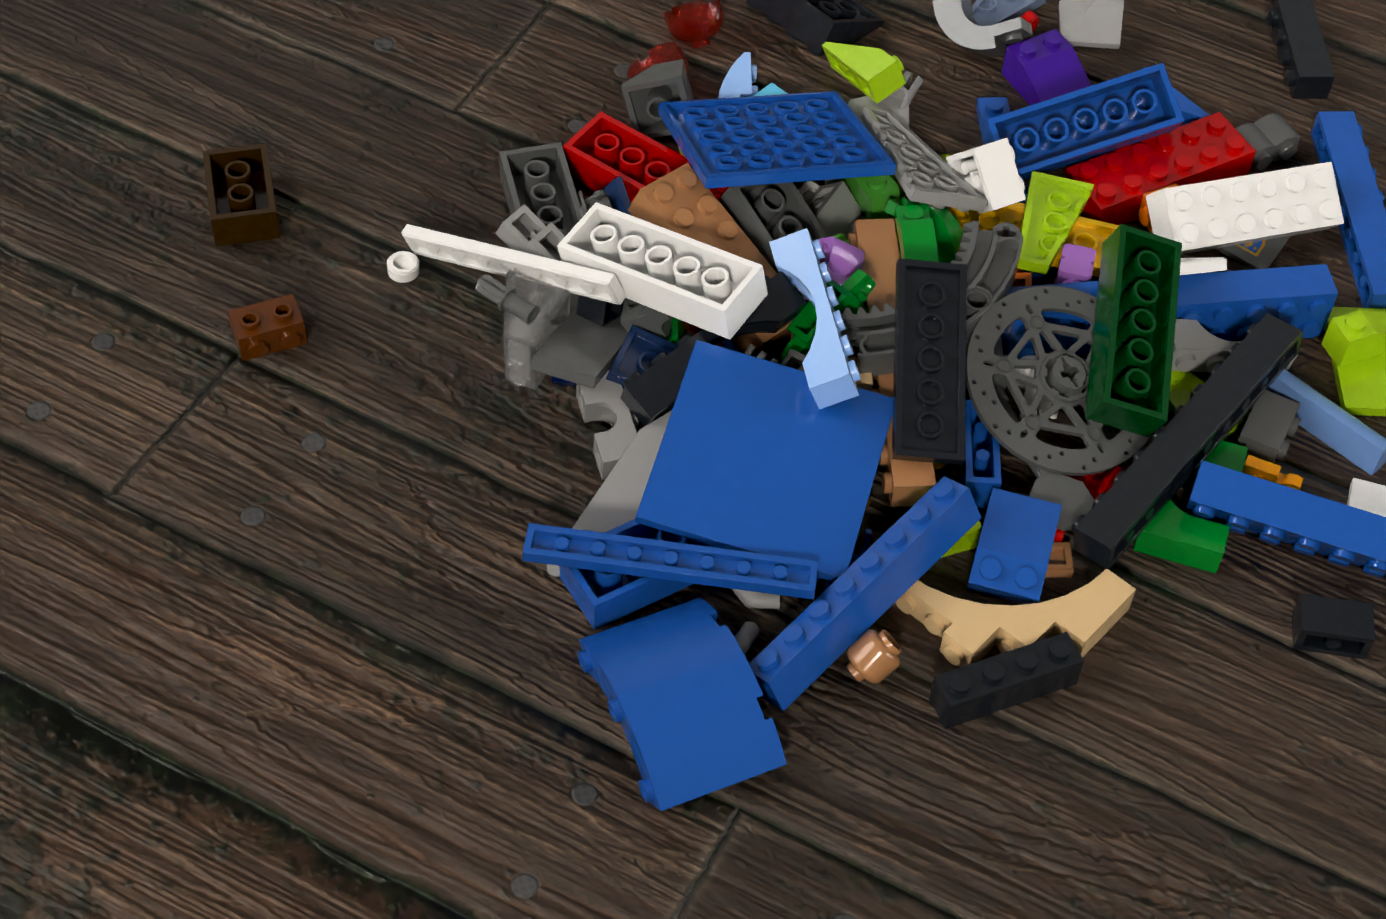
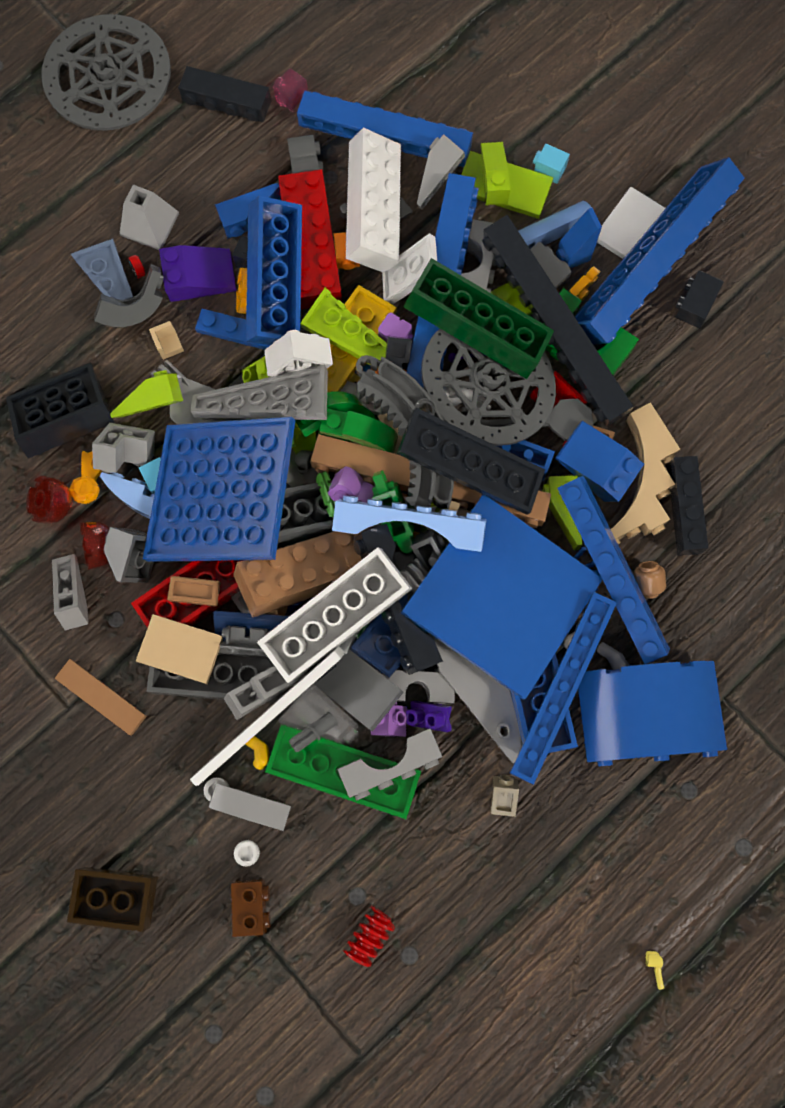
camera: 65 degrees left, 25 degrees up
(265, 457) = (370, 937): none -> red piece
(325, 801) = (654, 960): none -> light yellow hand
(334, 314) = (246, 853): none -> white tile
(393, 297) = (249, 806): none -> light grey slope
(463, 294) = (261, 752): none -> yellow arm
(469, 384) = (319, 765): none -> green plate
(478, 133) = (100, 697): none -> medium nougat tile
(497, 559) = (504, 795): none -> dark tan bracket
(522, 438) = (360, 777): none -> light grey arch
(543, 402) = (393, 723): none -> medium lavender brick
(561, 164) = (179, 649): none -> tan tile
(576, 446) = (429, 716): none -> dark purple hips
(587, 69) = (68, 593): none -> light grey slope
(639, 159) = (194, 591): none -> medium nougat tile
(725, 51) = (85, 488): none -> light orange piece
(788, 57) = (120, 445): none -> light grey brick
(946, 73) = (166, 340): none -> tan panel
(1044, 267) = (398, 350): none -> black plate
(1325, 448) = (580, 241): none -> blue slope
(1350, 263) = (441, 161): none -> light grey slope
(1351, 98) = (289, 89): none -> clear pink brick

